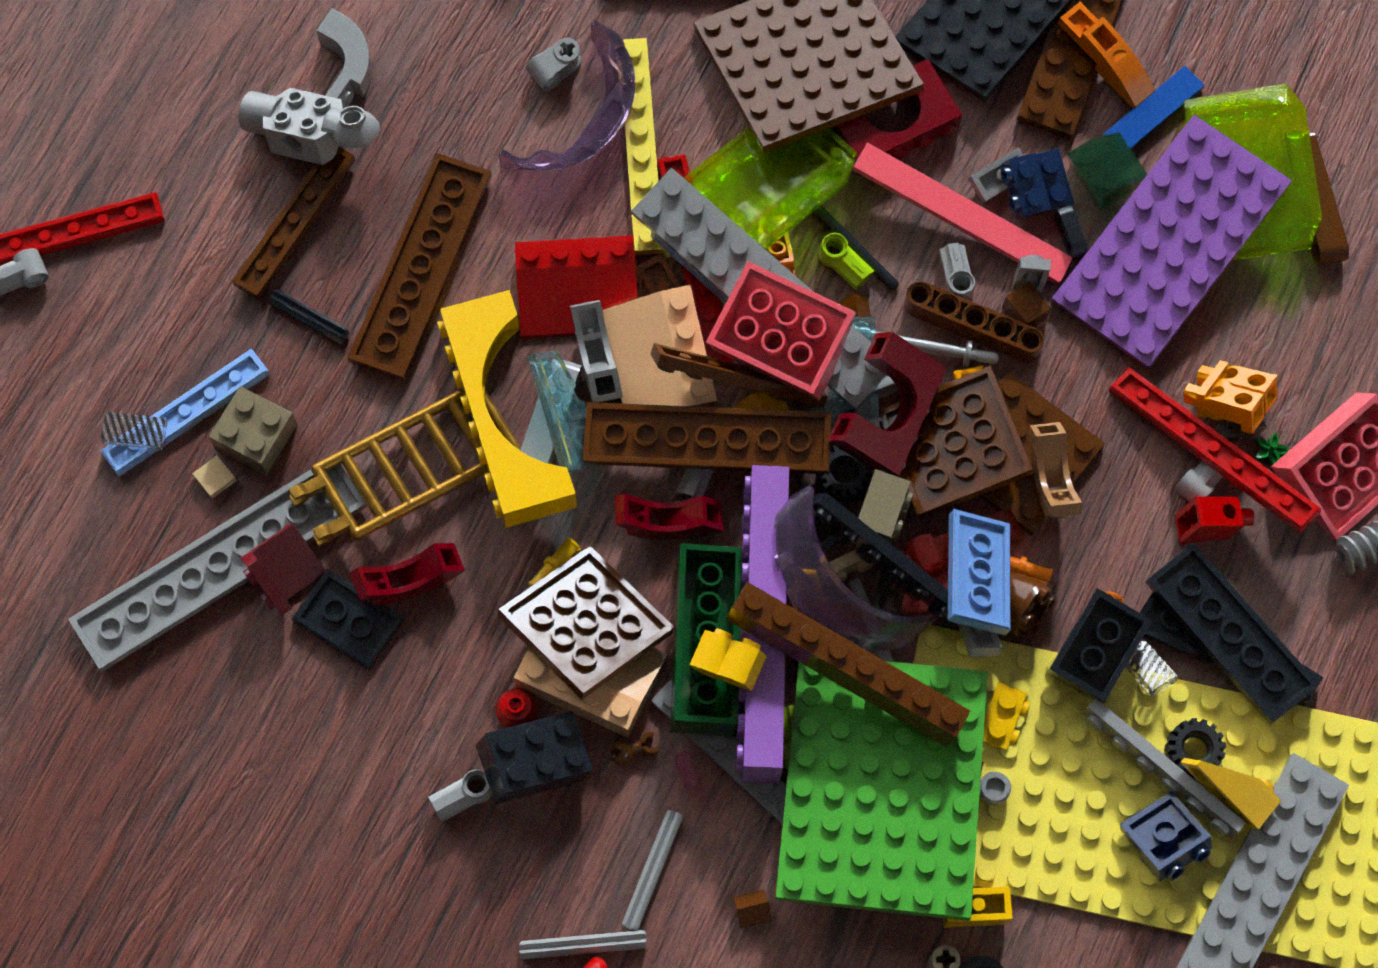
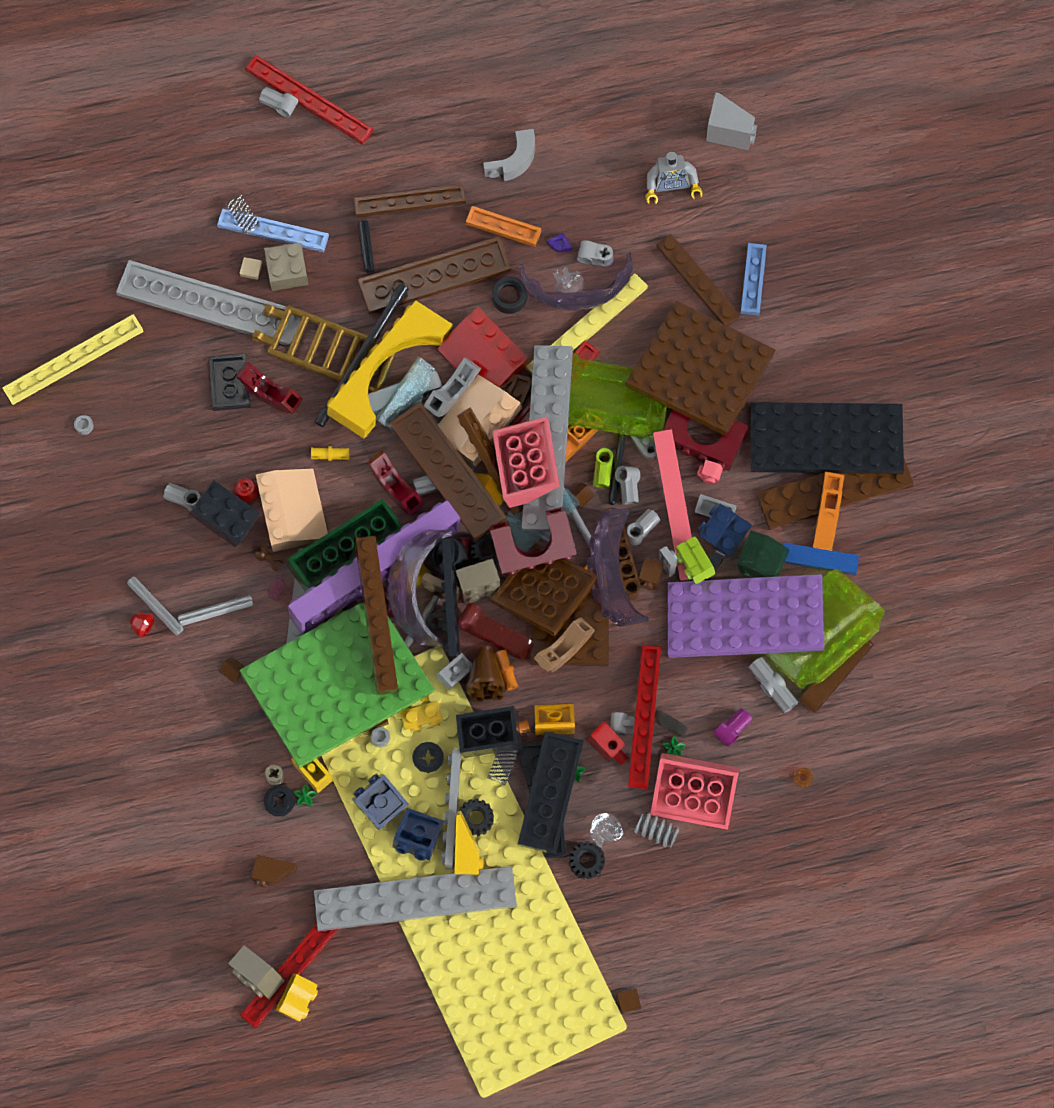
camera: 55 degrees right, 0 degrees up
(143, 798) = (72, 359): none -> light yellow plate
(247, 851) = (83, 425): none -> light grey tile
(282, 567) = (227, 331): dark red bracket -> none
(306, 124) = (460, 165): light grey brick -> none
(417, 331) = (396, 299): none -> black piece
(425, 139) = (503, 226): none -> orange plate
(504, 94) = (559, 243): none -> dark purple tile
(519, 179) = (509, 308): none -> black tyre
(569, 119) = (568, 283): none -> clear piece
(585, 622) = (309, 486): plate -> none
(728, 659) = (334, 559): yellow brick -> none
(849, 194) = (644, 444): none -> light grey plate
(893, 250) = (628, 479): none -> light grey piece
(948, 147) = (710, 472): none -> coral plate
(979, 572) = (479, 645): medium blue tile -> none
(999, 944) = (305, 796): none -> green plant
(1014, 367) = (605, 563): none -> clear purple windscreen
(1059, 241) = (695, 560): none -> lime brick
(1083, 747) = (421, 751): none -> black gear
(1084, 851) = (379, 800): none -> plate
(1129, 558) = (554, 719): none -> light orange slope
(1233, 394) = (683, 706): light orange hips -> none
(1277, 278) = (773, 685): none -> light grey piece
(1298, 368) = (730, 730): none -> magenta piece
(1323, 603) = (606, 829): none -> clear piece
(1355, 642) = (581, 849): none -> black tyre

